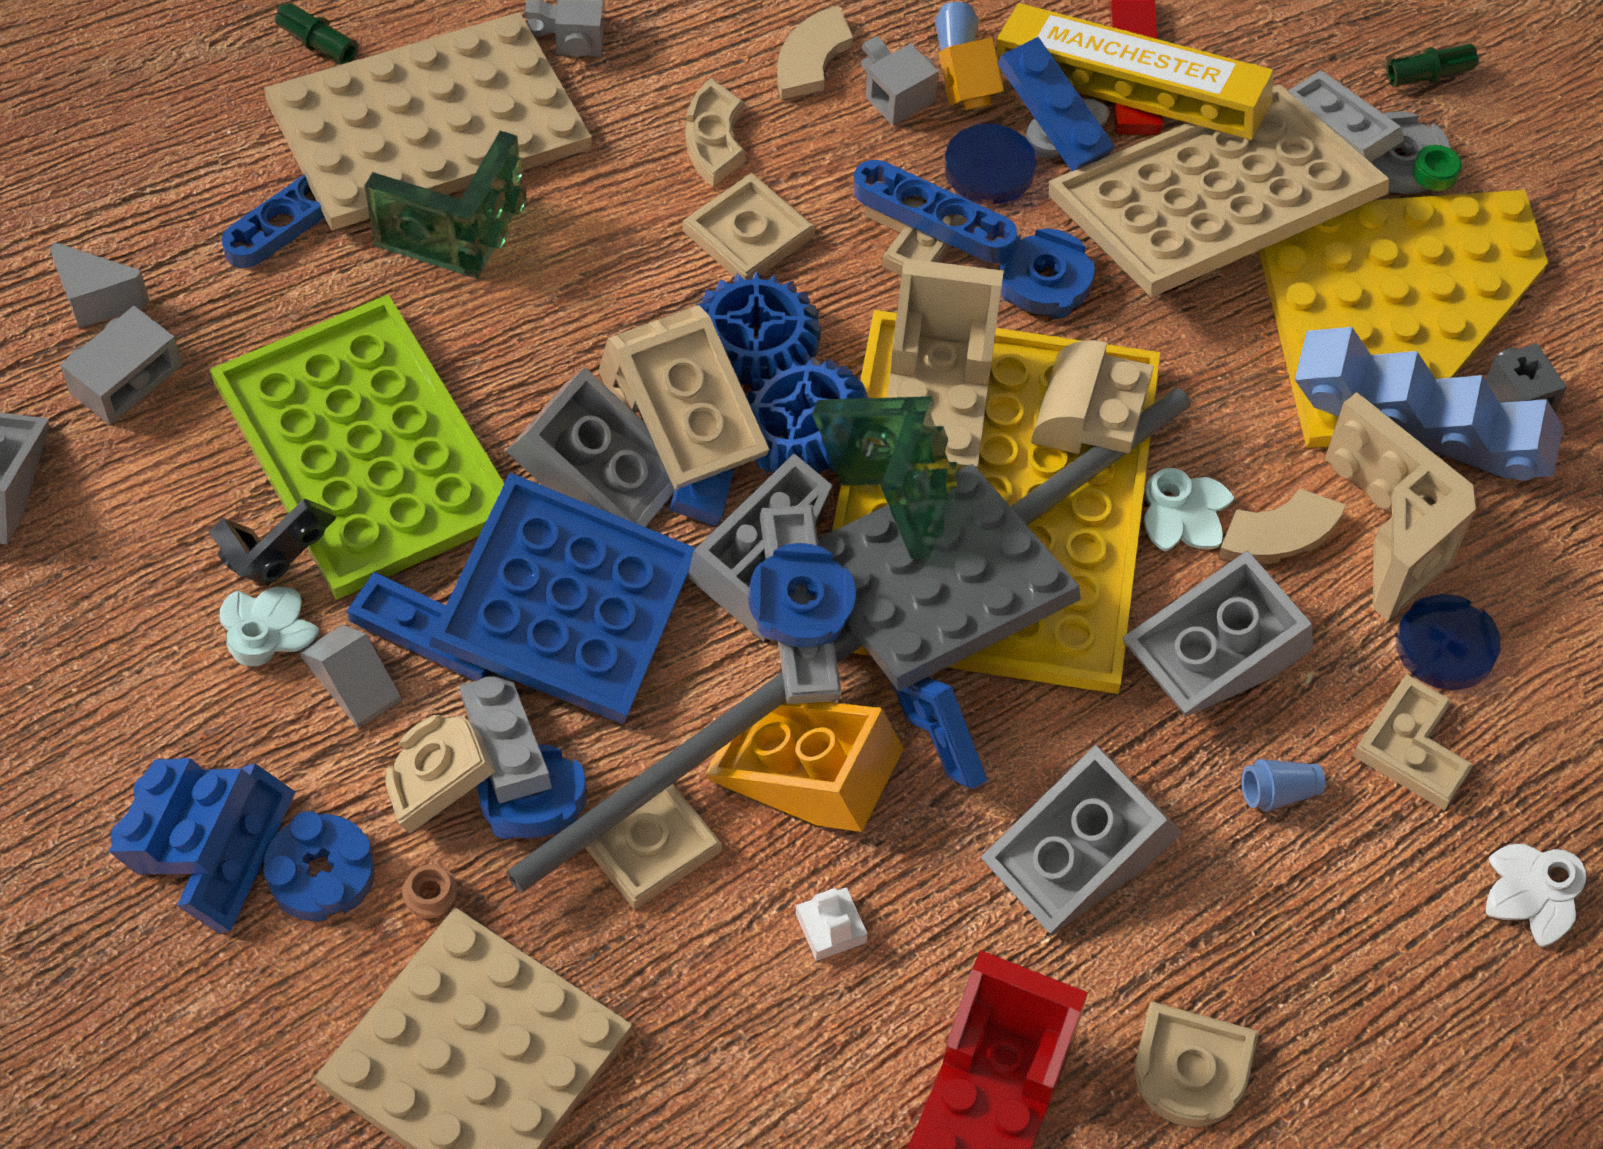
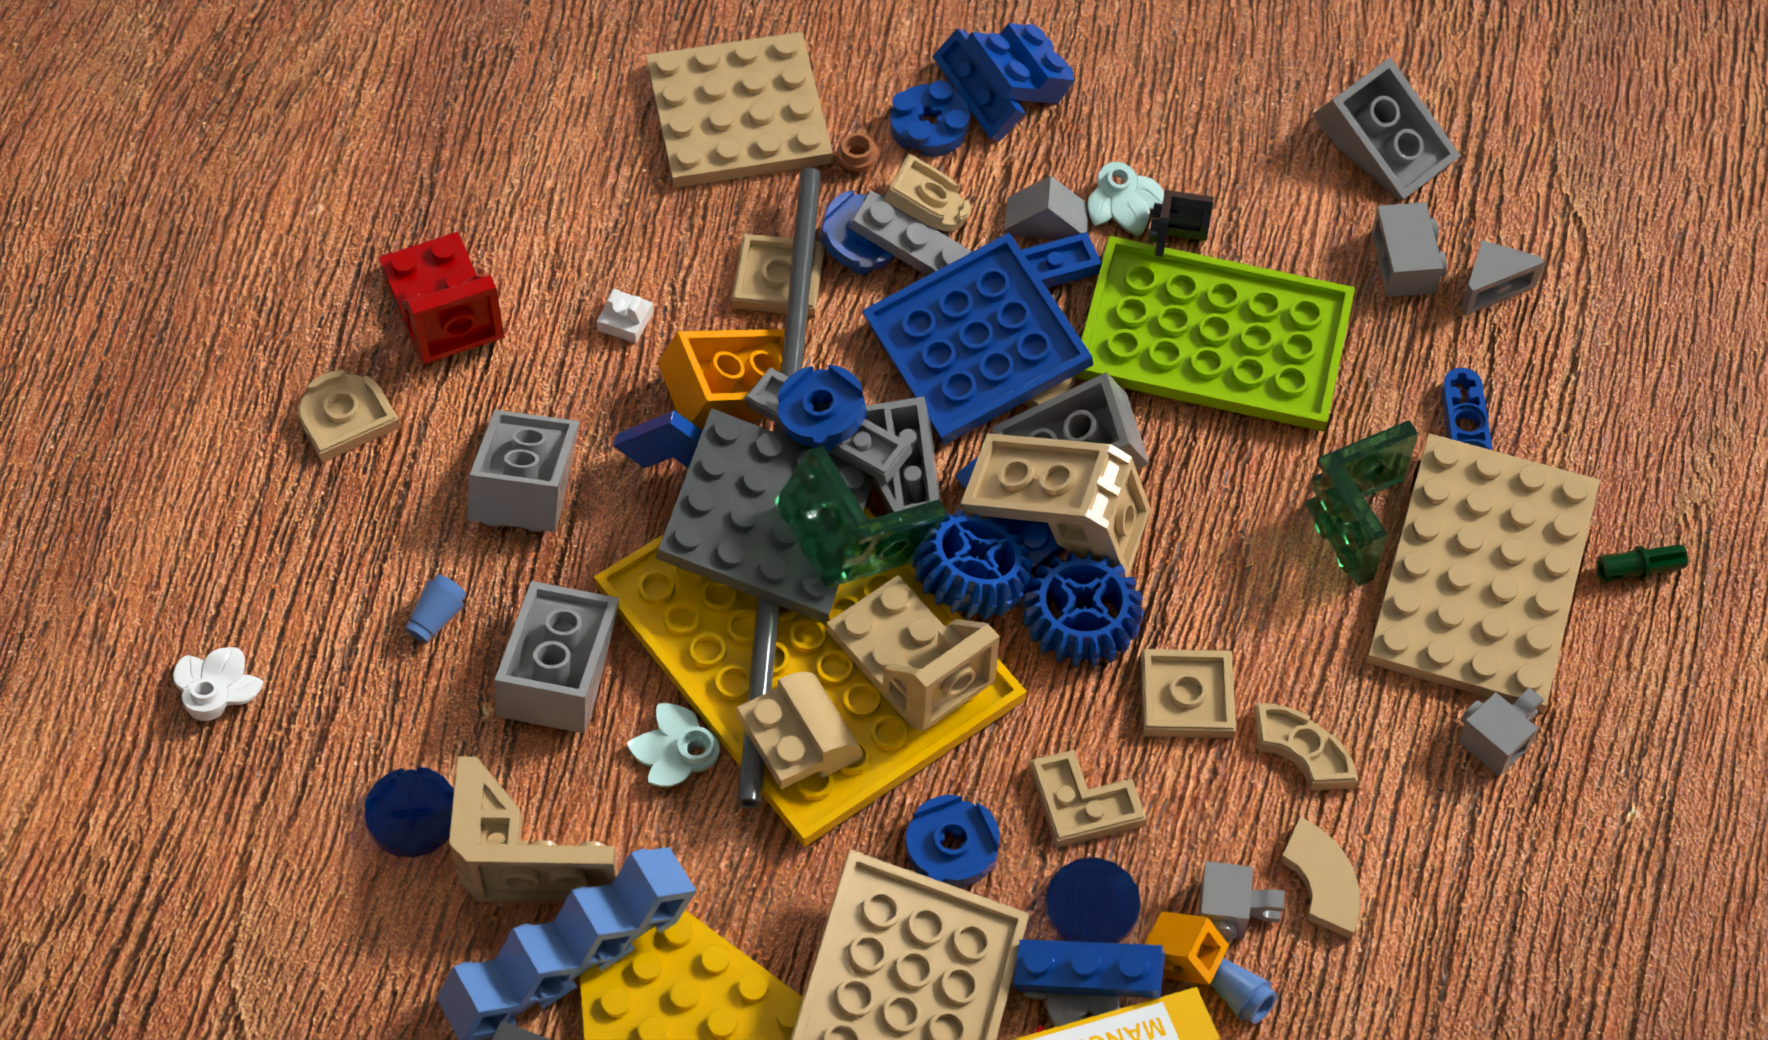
camera: 135 degrees right, 0 degrees up
(938, 206) = (1070, 793): blue beam -> none
(1284, 531) = (594, 790): tan tile -> none
(1402, 749) = (382, 709): tan tile -> none

